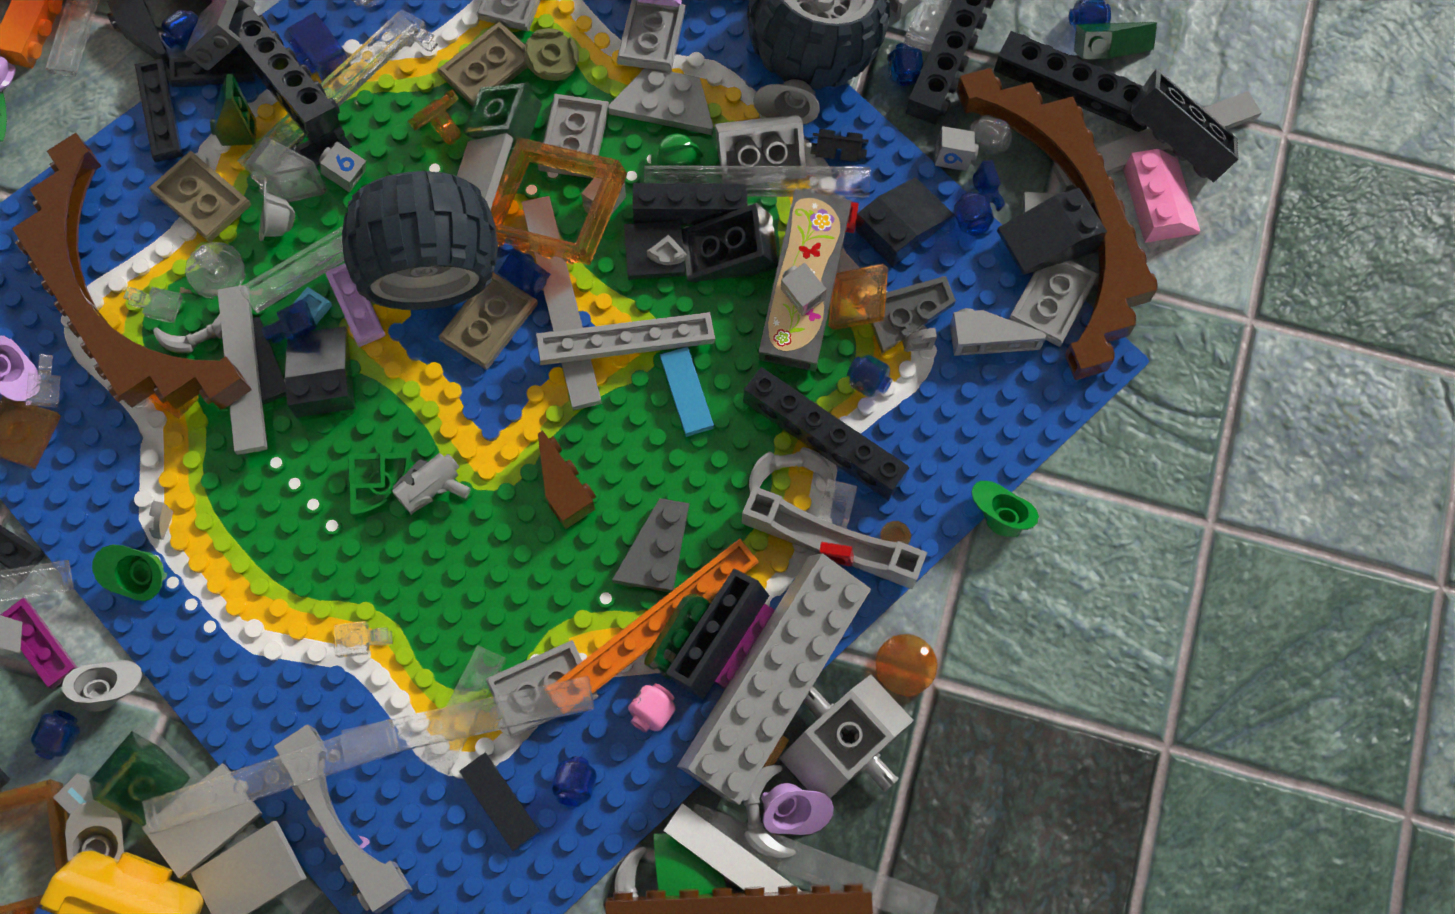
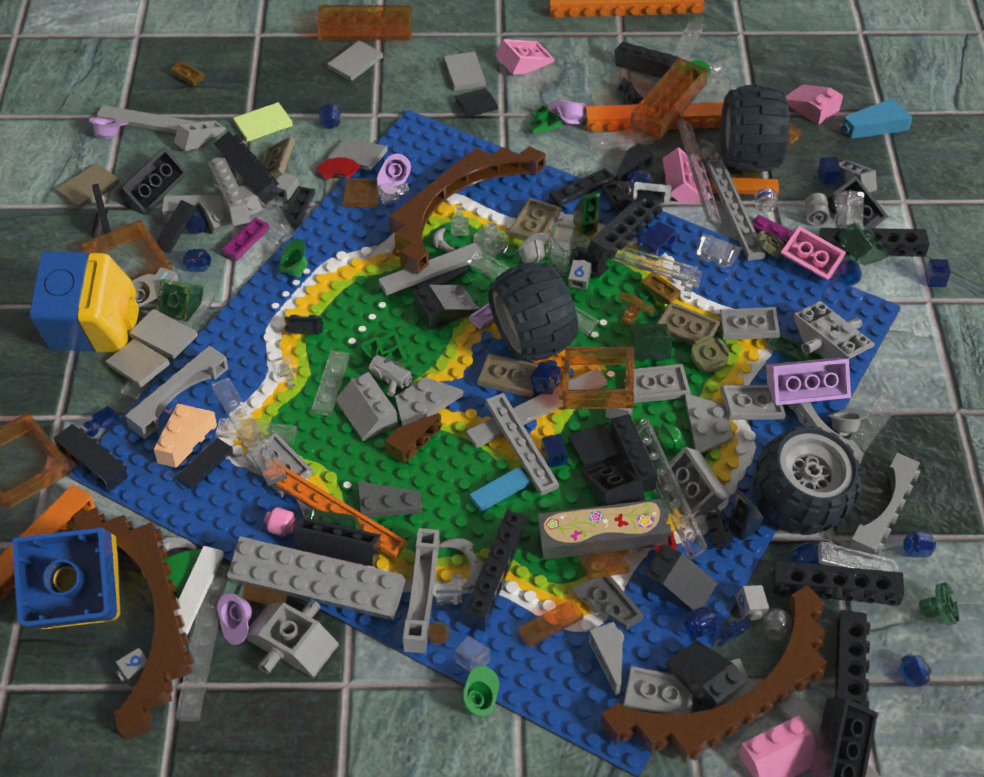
camera: 75 degrees right, 20 degrees down
(101, 685) = (227, 267): light grey piece -> none
(162, 517) = (329, 263): light grey tile -> none
(270, 776) = (192, 349): clear tile -> none
(280, 577) = (312, 323): none -> black hinge
(292, 323) = (468, 282): clear blue plate -> none
(318, 304) = (481, 290): medium azure tile -> none
(408, 73) = (660, 288): none -> pearl gold plate
(408, 576) = (330, 383): none -> clear tile
(435, 824) = (182, 433): none -> light nougat wedge
(480, 534) = (367, 407): none -> light grey slope
(485, 163) = (603, 339): light grey tile -> none
(493, 451) = (425, 399): none -> light grey wing
(574, 782) = (224, 493): clear blue head -> none
(648, 300) = (554, 450): none -> clear blue brick
(667, 252) = (592, 450): light grey tile -> none
(756, 833) = (239, 589): light grey piece -> none
(787, 99) = (733, 482): light grey piece -> none
(802, 288) = (587, 519): light grey brick -> none
(838, 553) = (407, 587): red tile -> none
(843, 106) = (744, 517): none -> black slope
(869, 376) = (549, 587): clear blue head -> none
(906, 664) = (351, 664): clear orange dish -> none
(918, 392) = (550, 623): none -> clear orange tile
(920, 340) = (589, 614): light grey tile -> none
(950, 500) = (472, 654): none -> clear panel
(1114, 39) = (899, 689): dark green slope -> none

